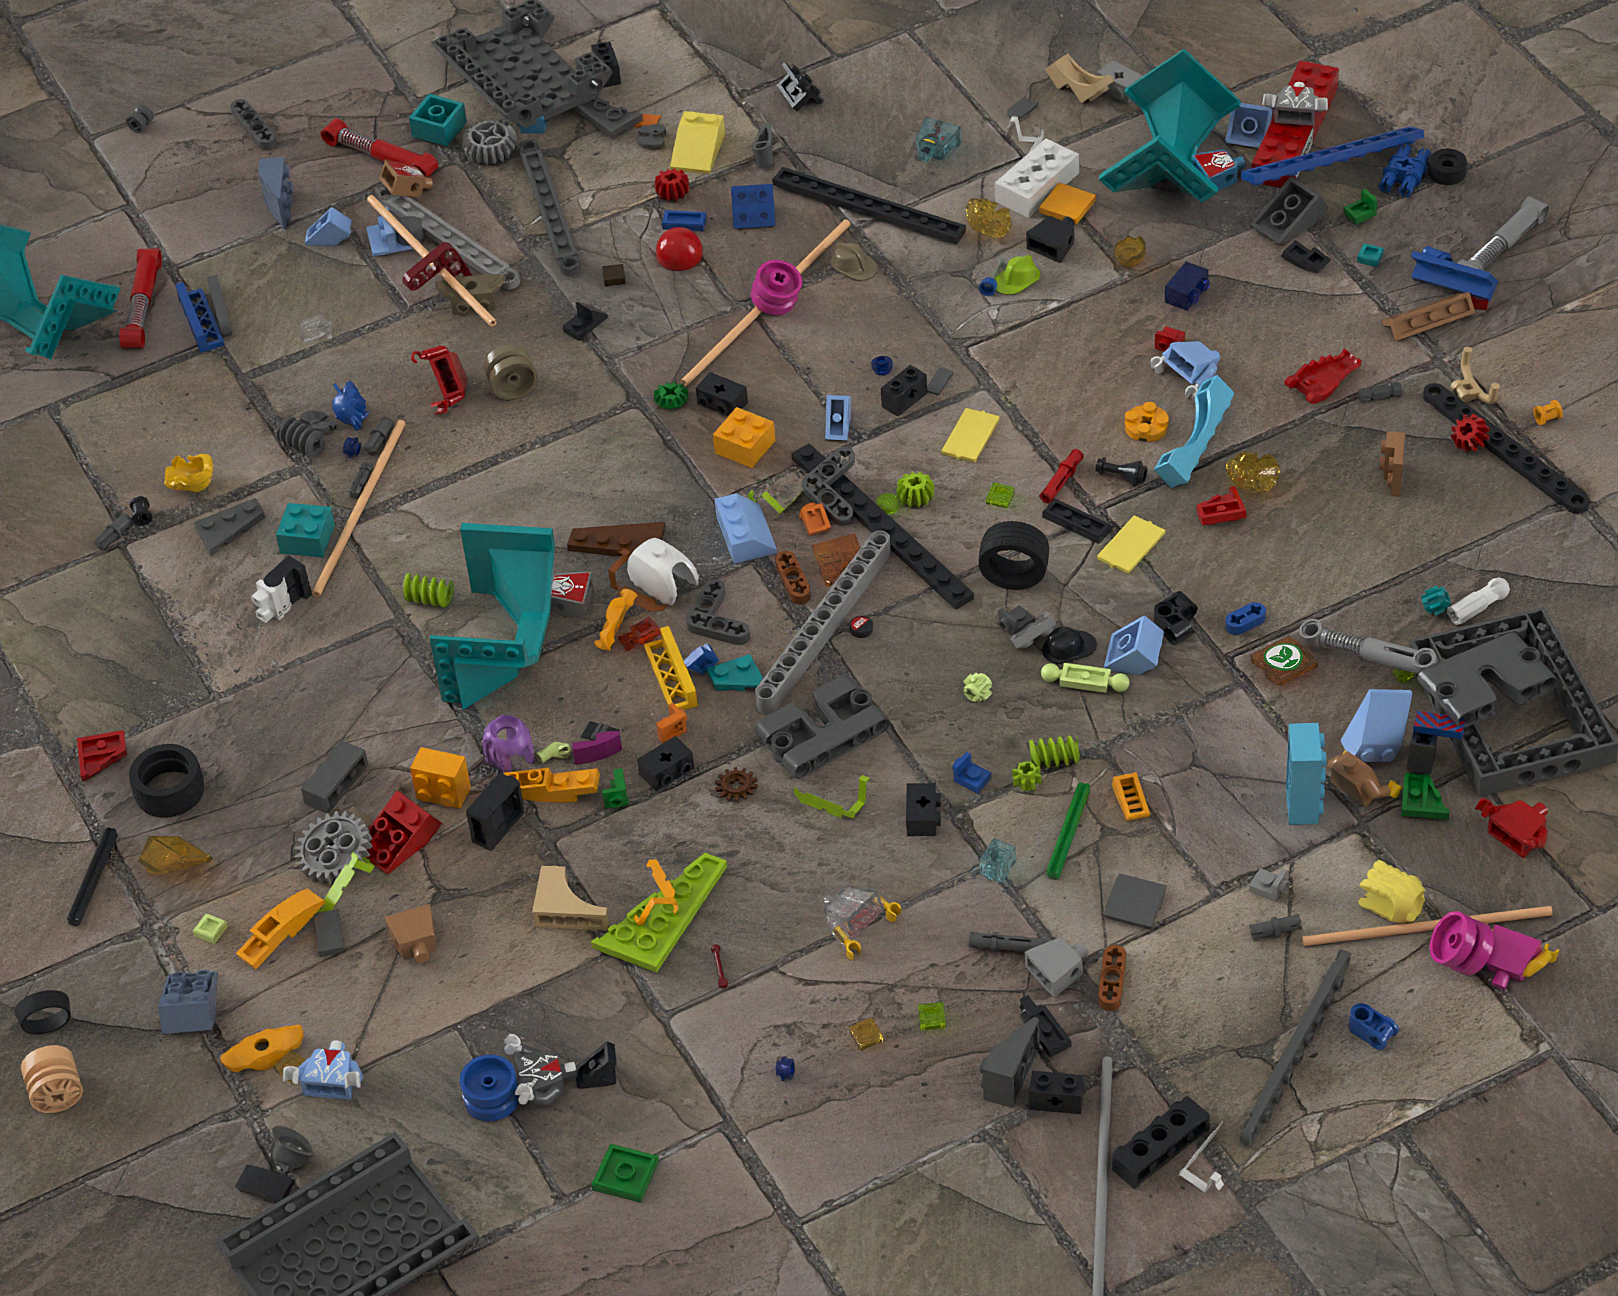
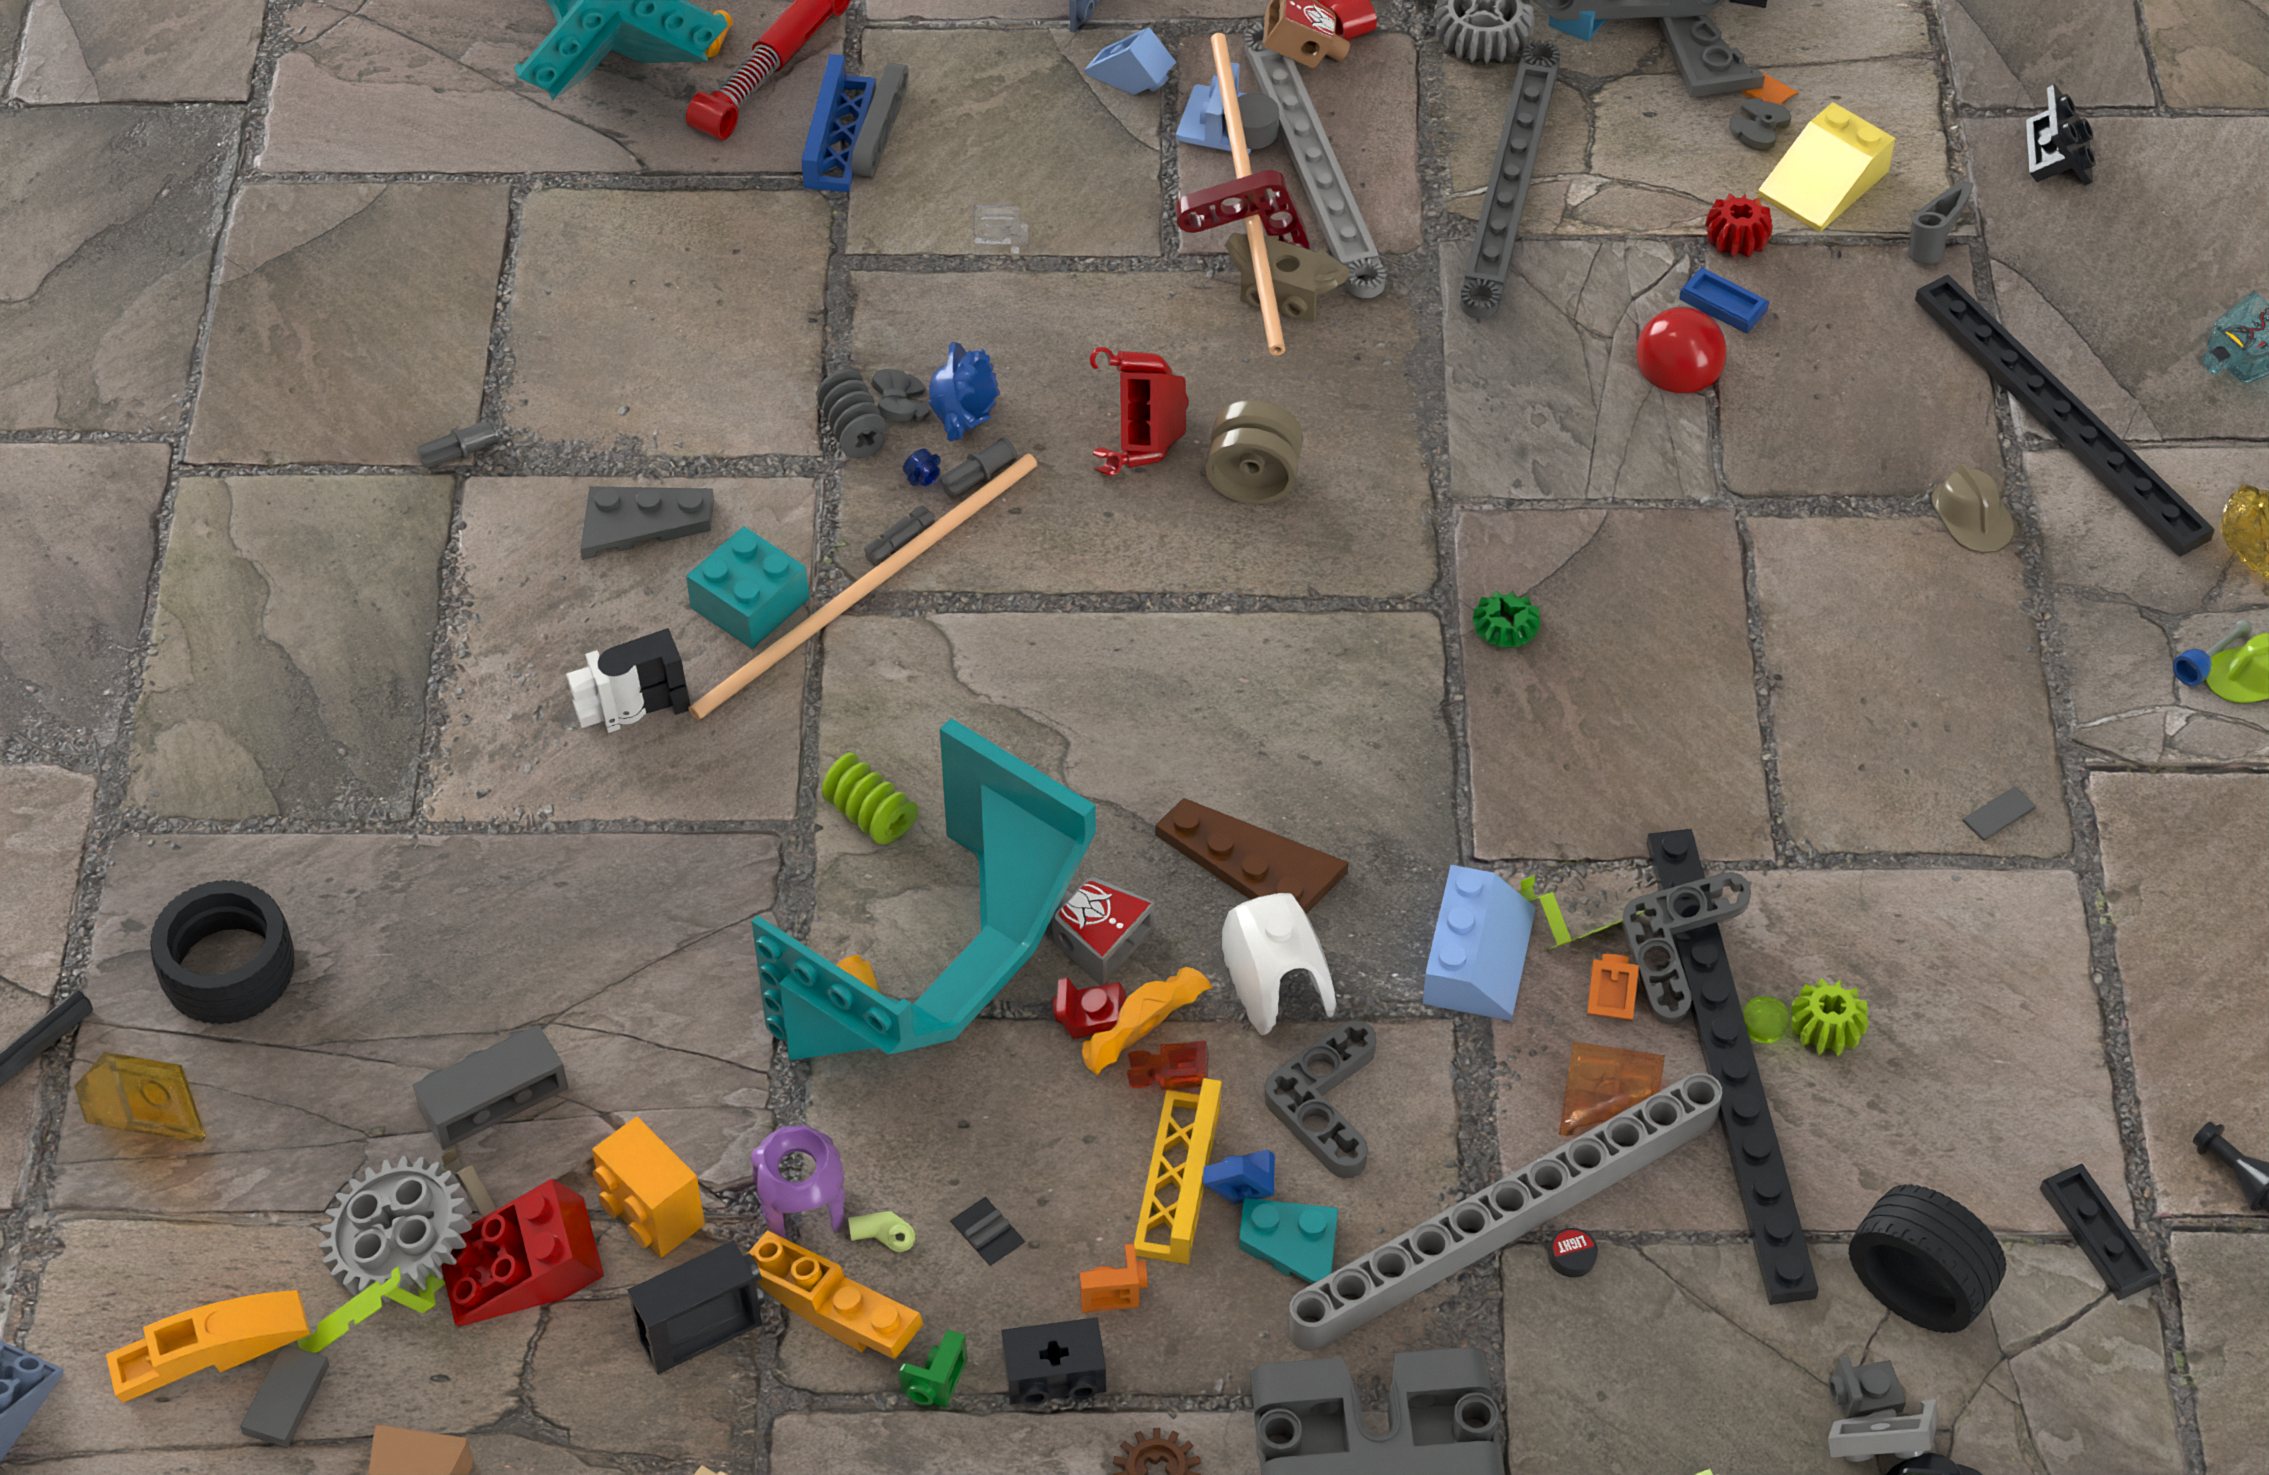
camera: 25 degrees right, 5 degrees up
(99, 752) = (165, 840): red wing -> none
(138, 509) = (522, 427): black bush -> none
(189, 475) = (635, 399): yellow hair -> none
(210, 928) = (107, 1277): yellowish green tile -> none
(585, 321) = (1449, 411): black slope -> none
(588, 628) = (1088, 1009): none -> red bracket
(604, 746) = (970, 1266): magenta slope -> none
(613, 275) = (1545, 347): dark brown tile -> none
(641, 600) = (1221, 997): dark orange piece -> none
(721, 394) = (1590, 661): black brick -> none
(744, 323) = (1773, 517): light nougat piece -> none
(744, 437) = (1581, 763): light orange brick -> none
(753, 206) = (1853, 326): blue bracket -> none
(776, 287) = (1802, 499): dark pink wheel -> none
(793, 569) = (1514, 1102): dark orange beam -> none
(838, 417) = (1771, 801): light blue slope -> none
(882, 365) = (1904, 738): clear blue plate -> none
(904, 390) = (1920, 806): black brick -> none
(970, 435) = (1997, 951): light yellow piece -> none
(1000, 495) = (1983, 1105): clear neon green tile -> none
(1065, 470) = (2134, 1114): red pin -> none
(1131, 544) = (2179, 1334): light yellow piece -> none

